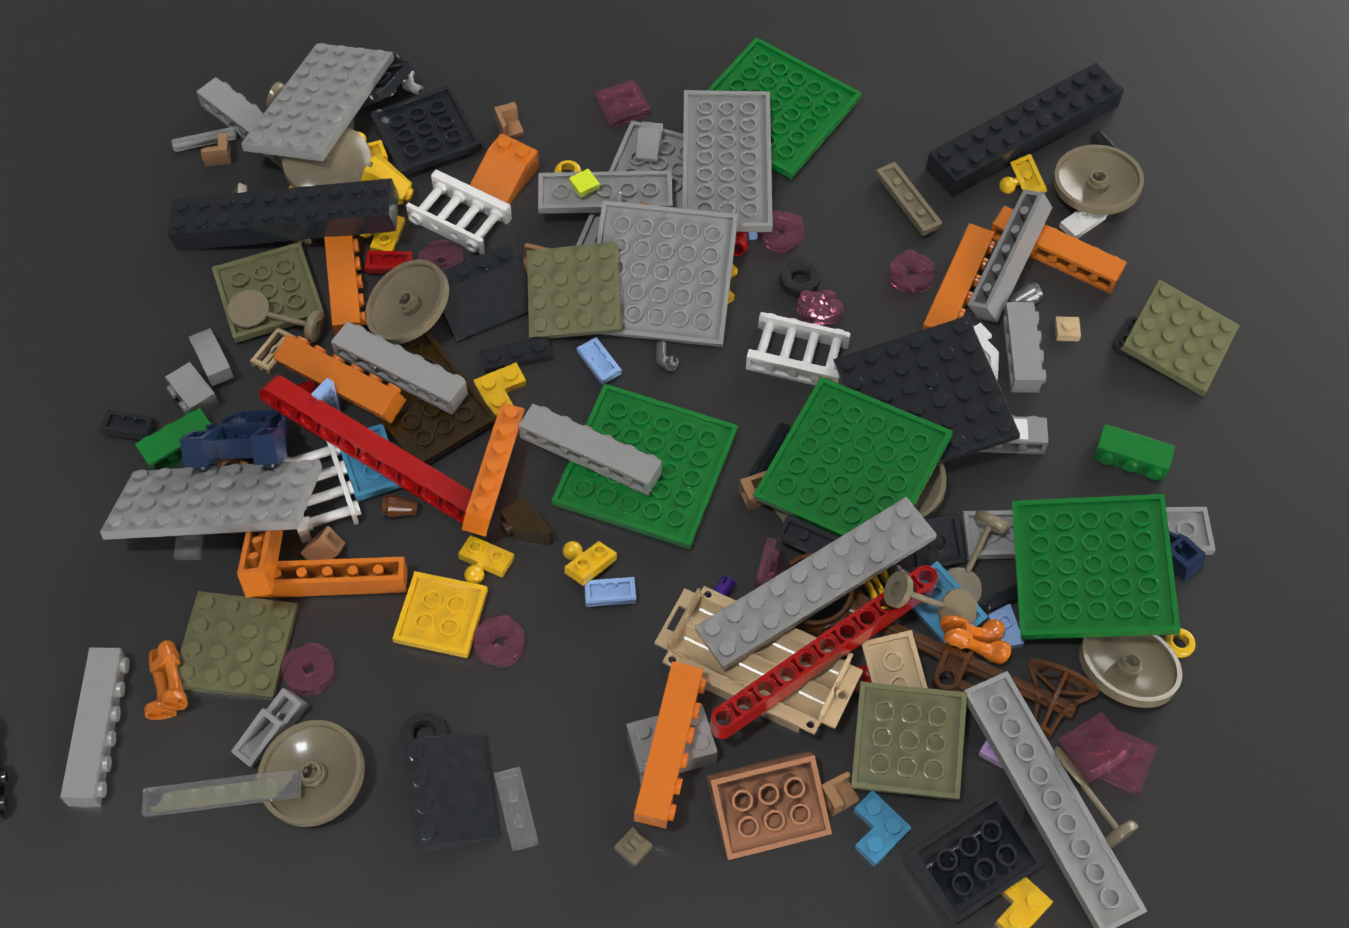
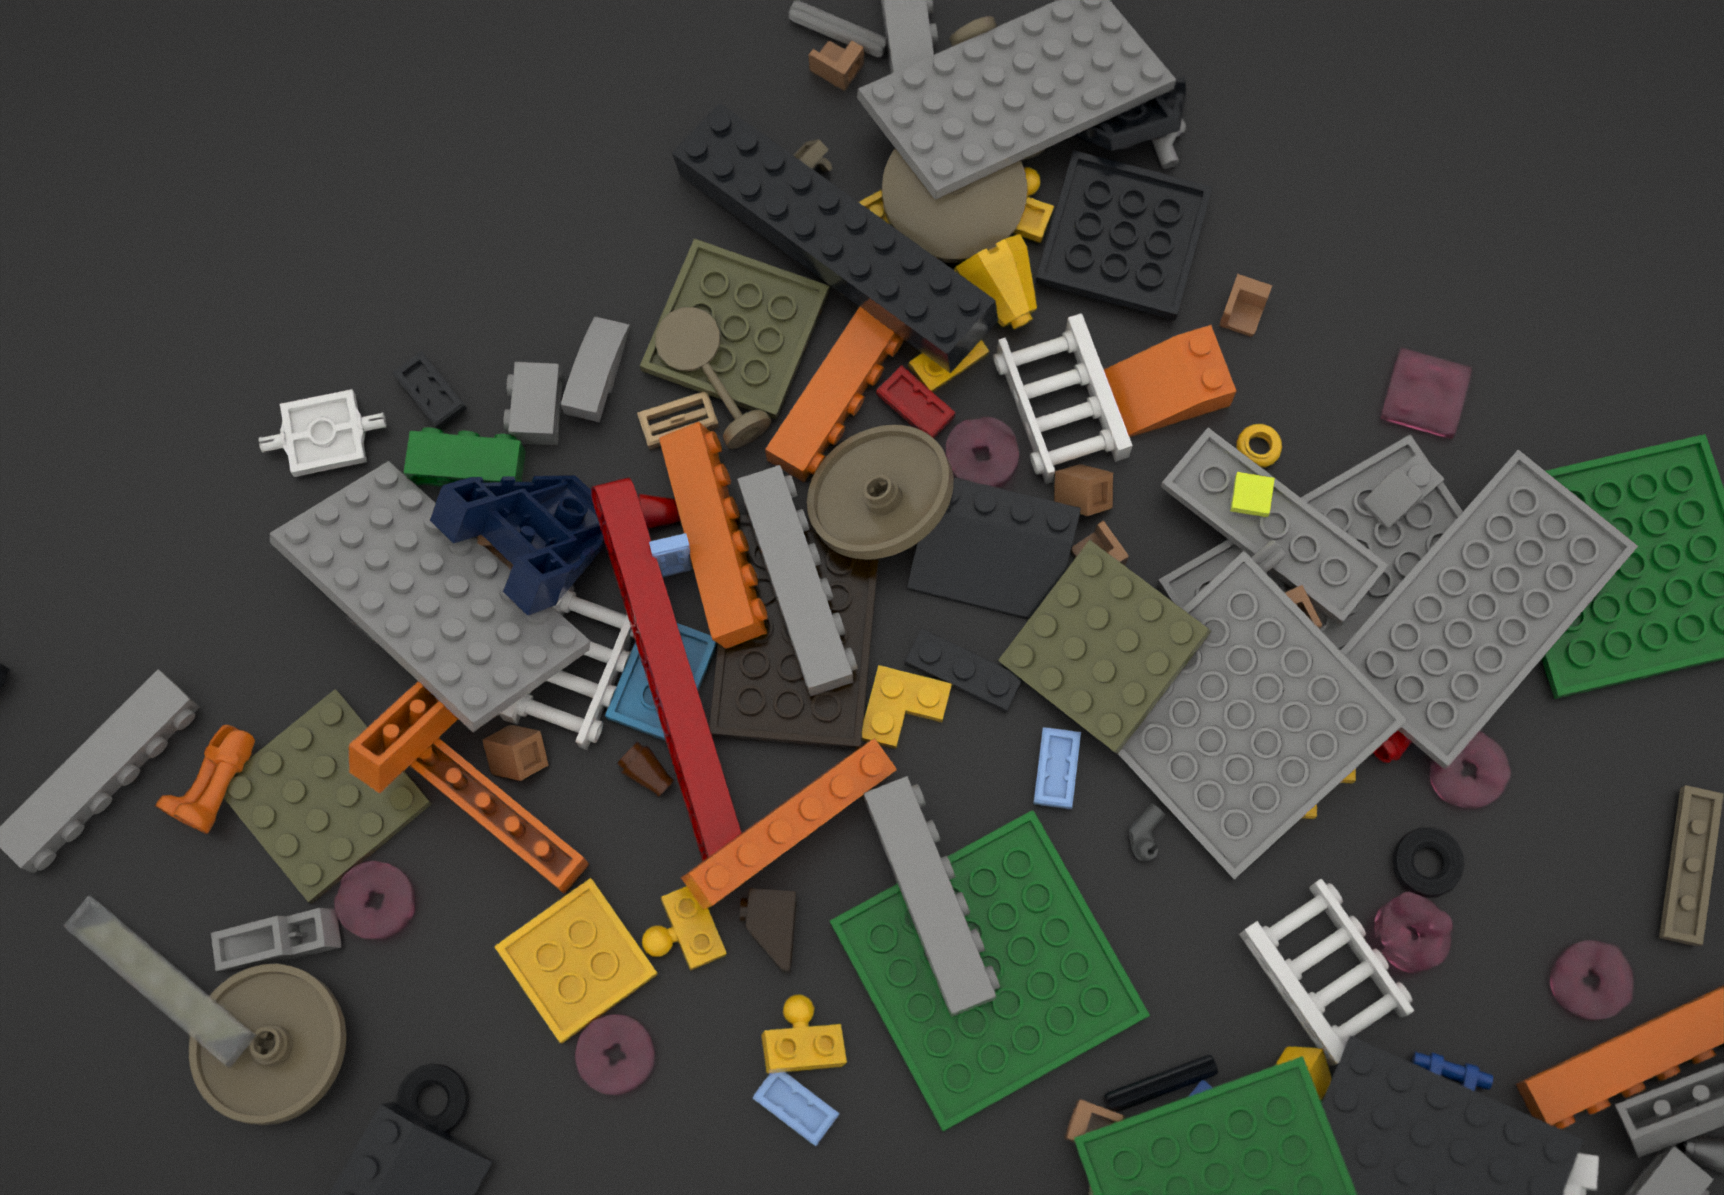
camera: 45 degrees right, 15 degrees up
(84, 483) = (323, 433): none -> white plate
(504, 237) = (1084, 488): none -> medium nougat panel

